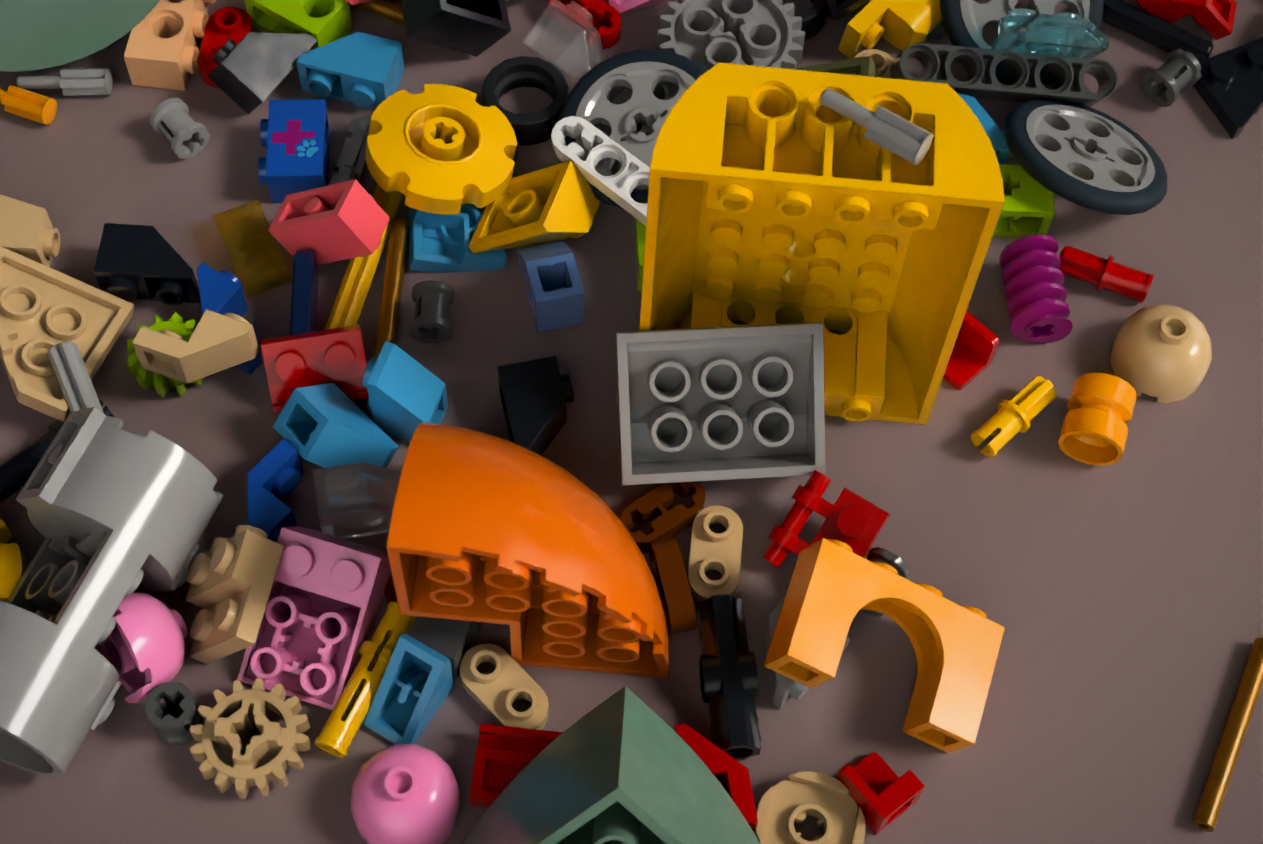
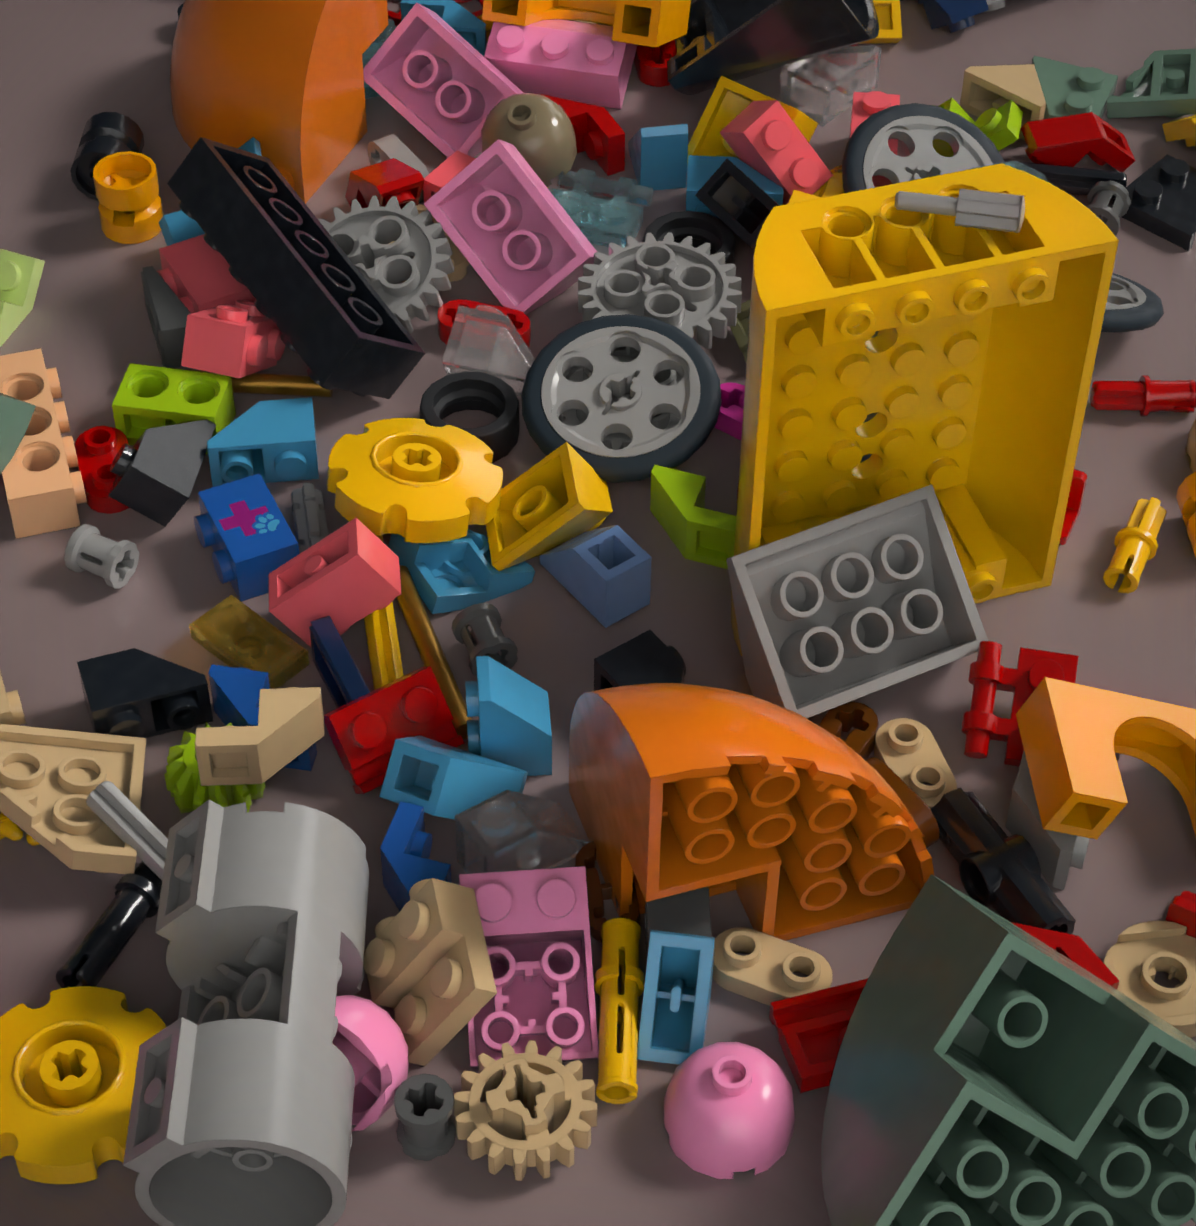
camera: 20 degrees left, 15 degrees down
(600, 146) = (635, 438): white beam -> none
(1035, 290) = (1107, 440): magenta piece -> none

